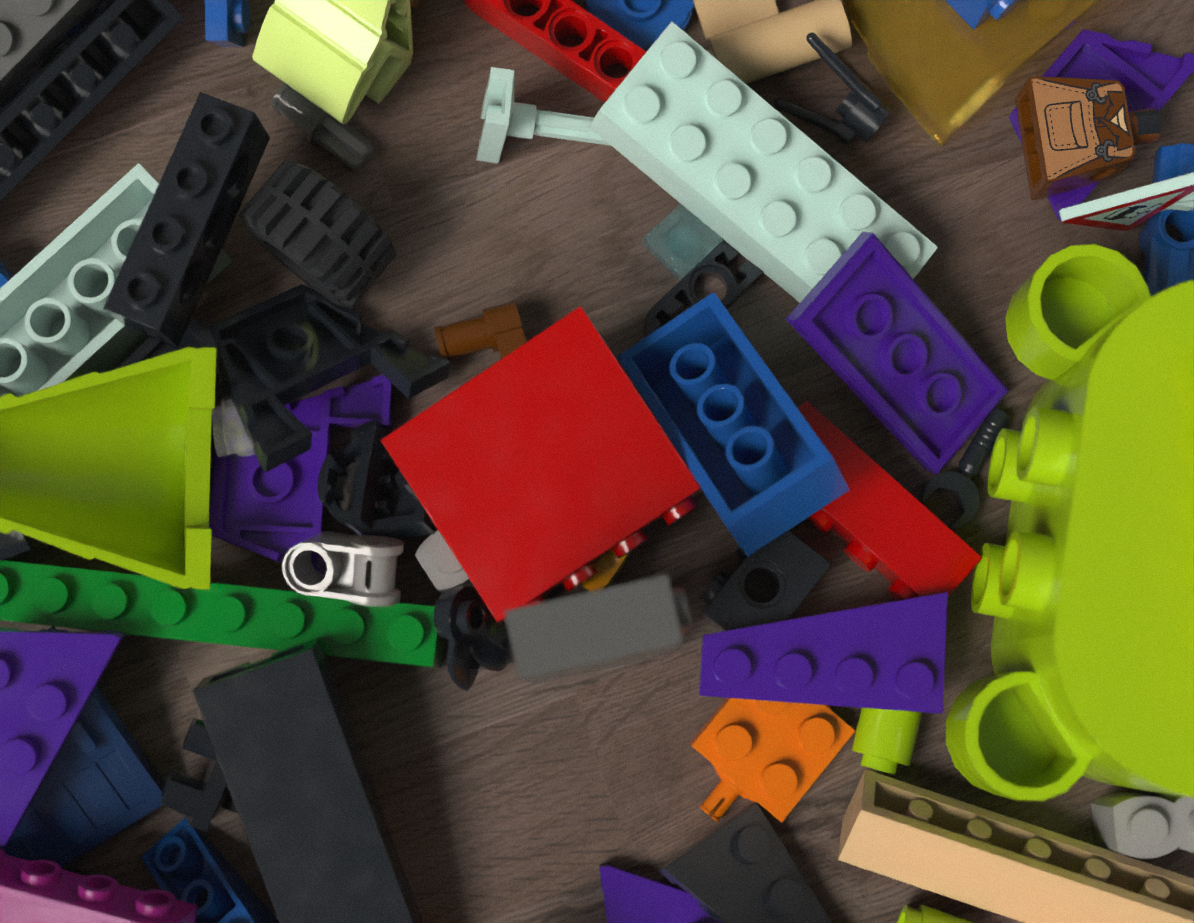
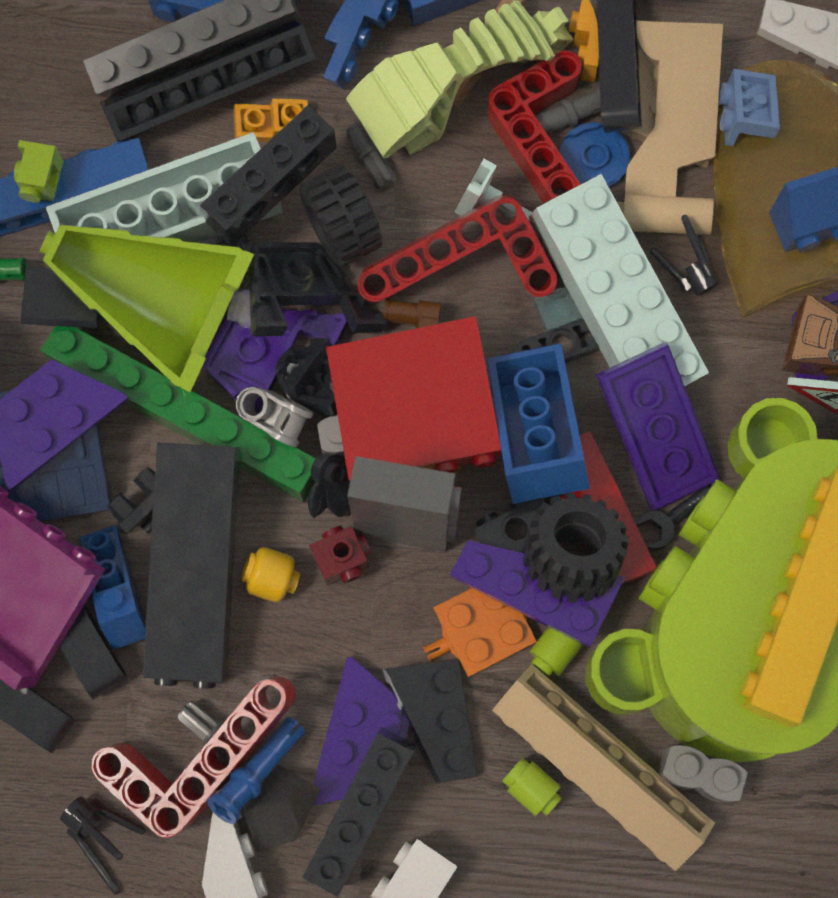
camera: 20 degrees right, 5 degrees down
(148, 136) = (265, 119): none -> light orange slope
(439, 797) = (270, 574): none -> yellow head
(506, 732) = (336, 568): none -> dark red brick
(511, 209) = (460, 247): none -> red beam
(876, 542) = (579, 521): none -> black tyre

